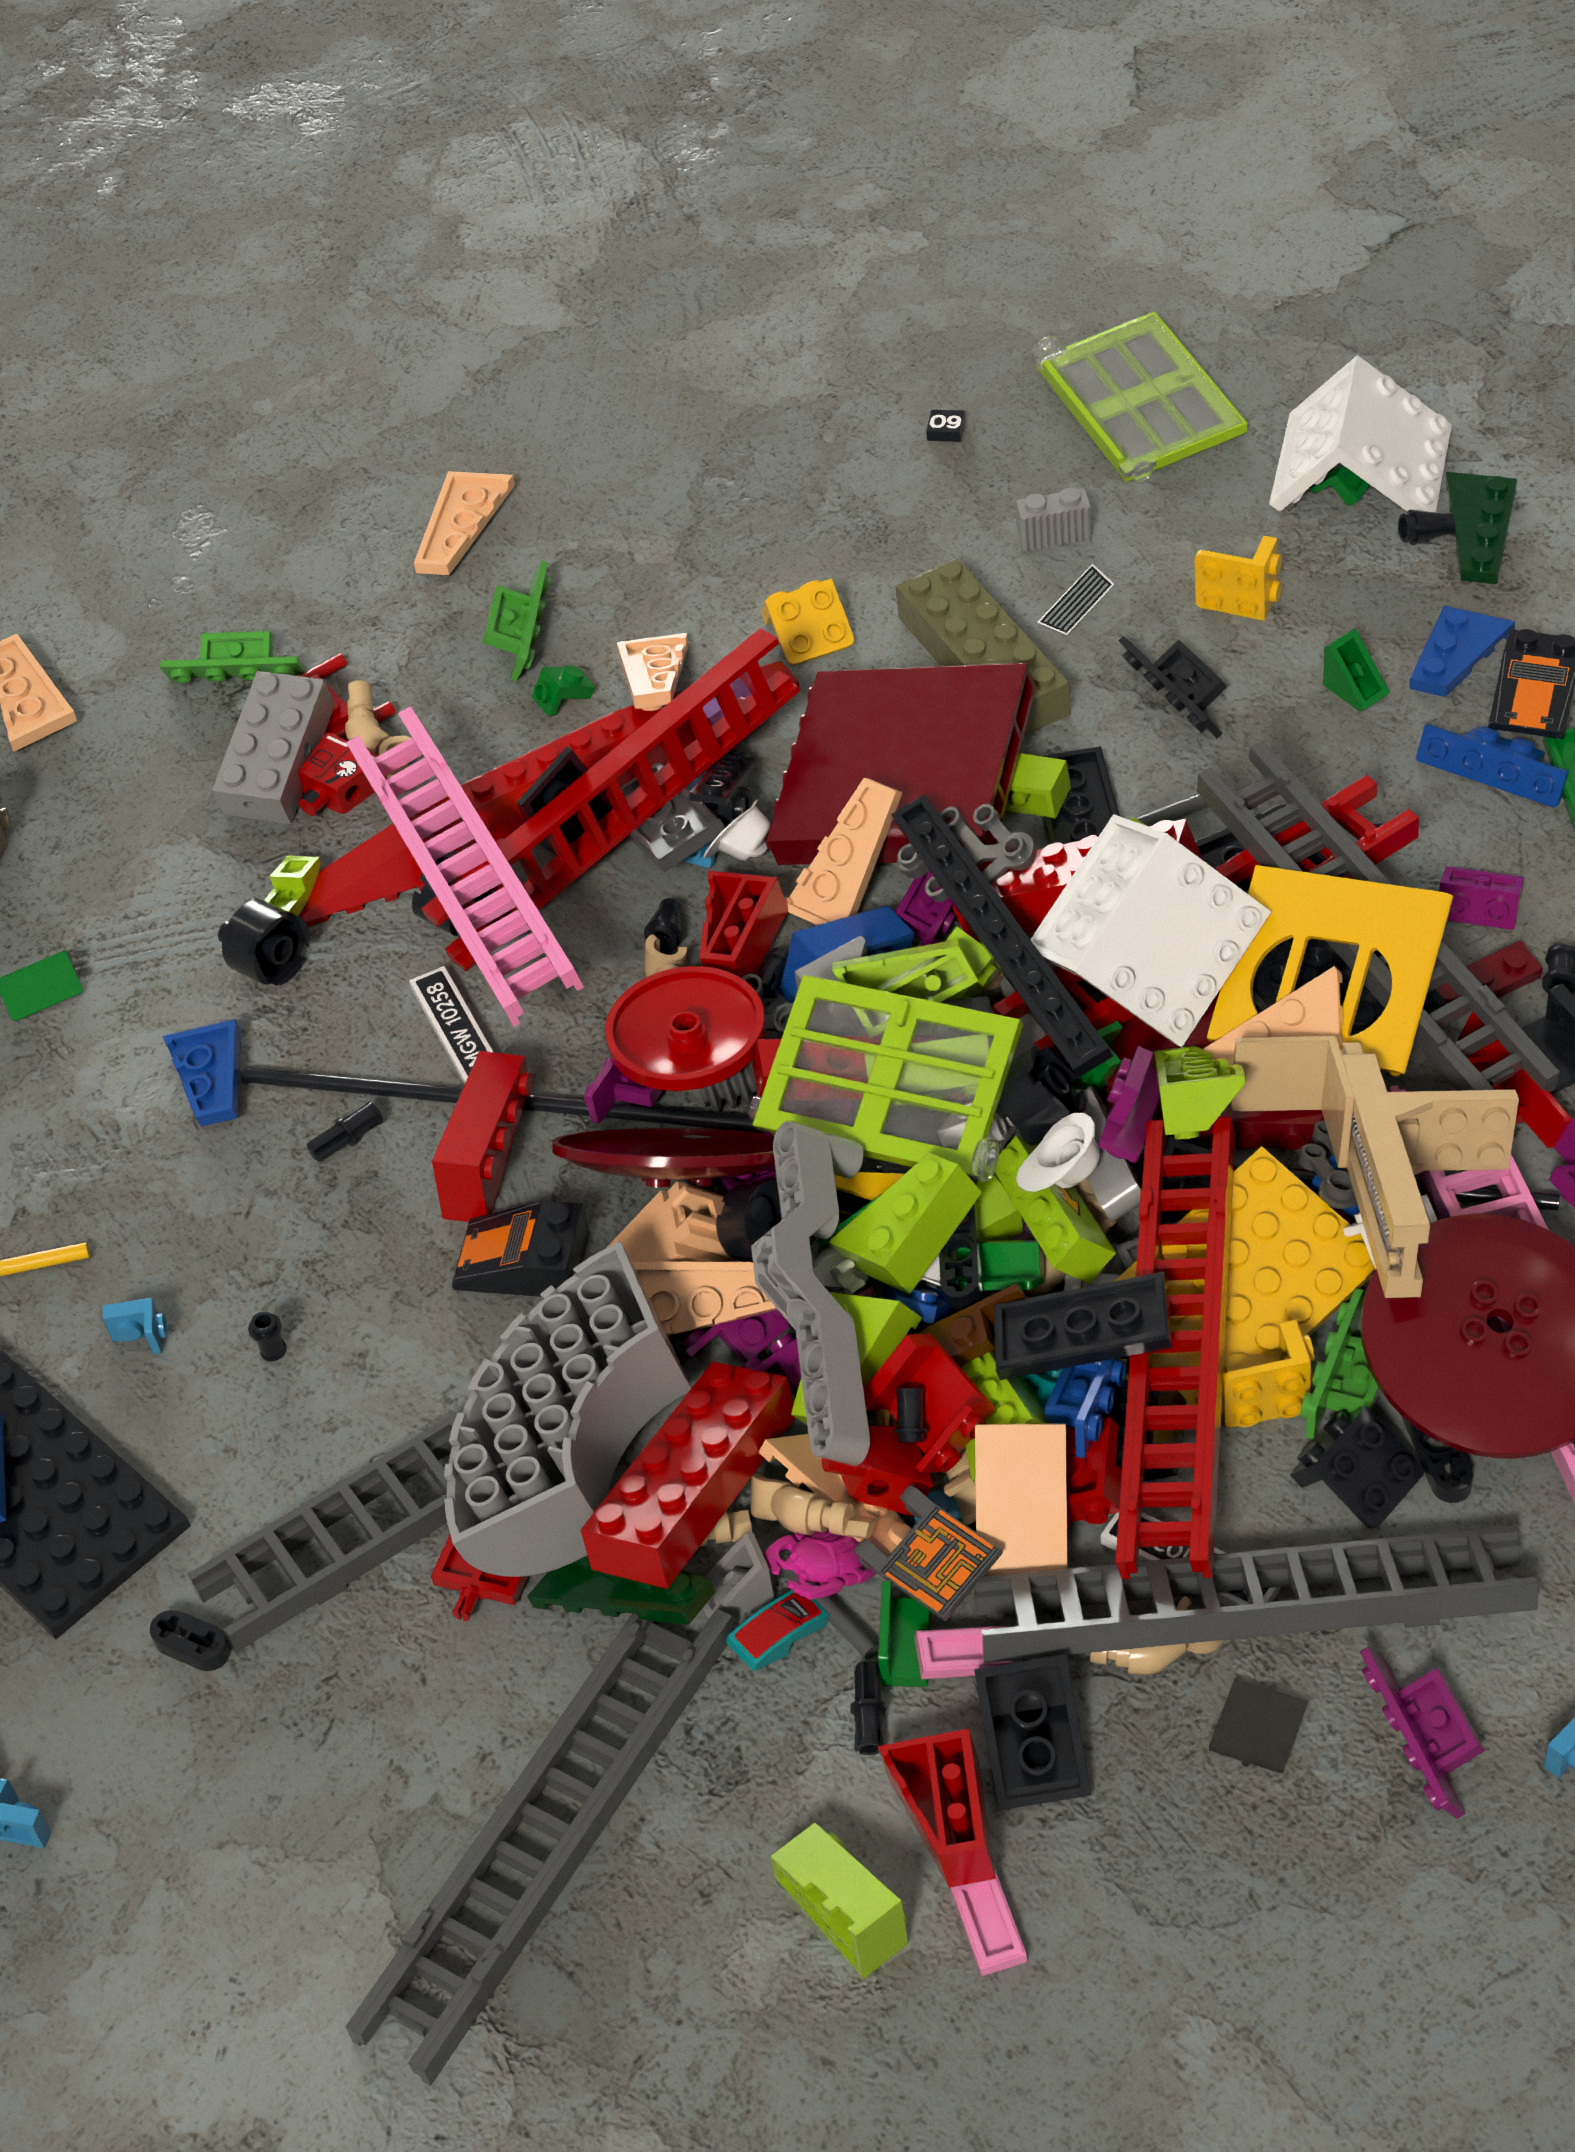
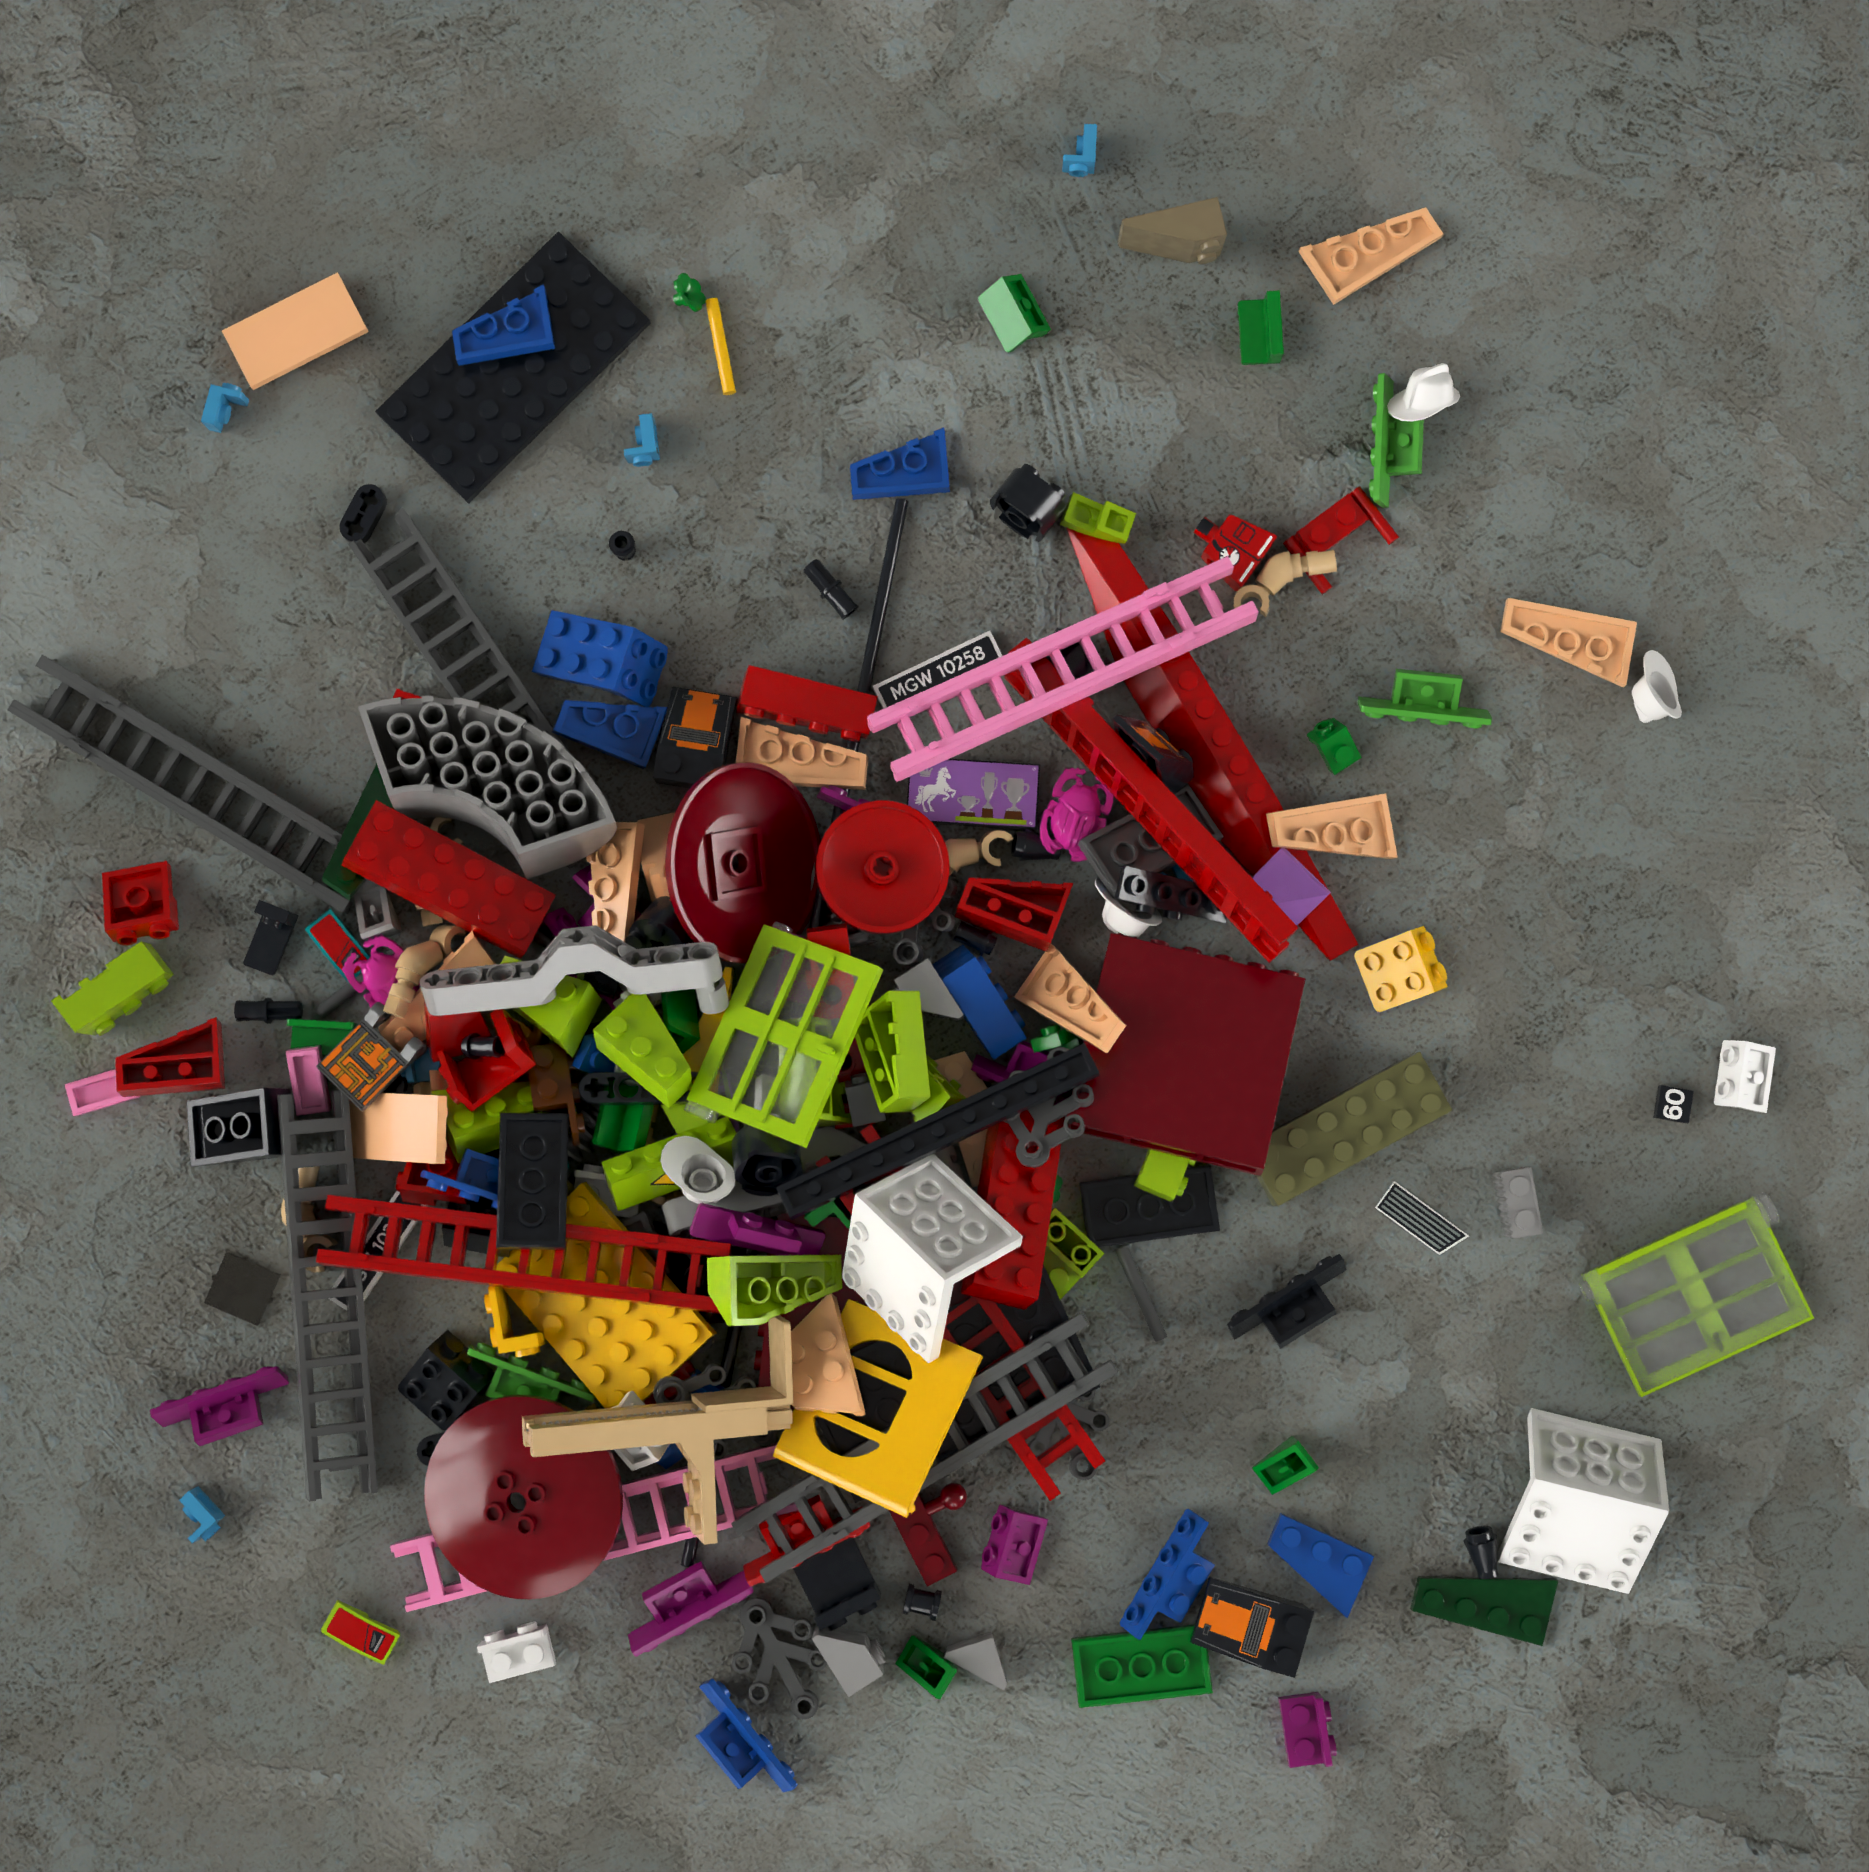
camera: 80 degrees right, 35 degrees up
(94, 770) = (1261, 330): none -> green panel
(187, 631) = (1425, 395): none -> white piece
(270, 743) = (1263, 488): light grey brick -> none
(402, 1353) = (601, 656): none -> blue bracket
(490, 1317) = (615, 730): none -> blue wing
(526, 457) = (1656, 691): none -> white piece
(557, 1112) = (801, 758): none -> light nougat wing
(607, 964) = (977, 793): none -> medium lavender tile
(630, 886) = (1074, 814): none -> dark pink shield
(715, 1876) = (139, 903): none -> red plate
(760, 1710) = (270, 938): none -> black bracket
(889, 883) = (1053, 1037): none -> green bracket
(914, 378) = (1744, 1075): none -> white bracket
(1239, 583) = (1393, 1375): yellow bracket -> none

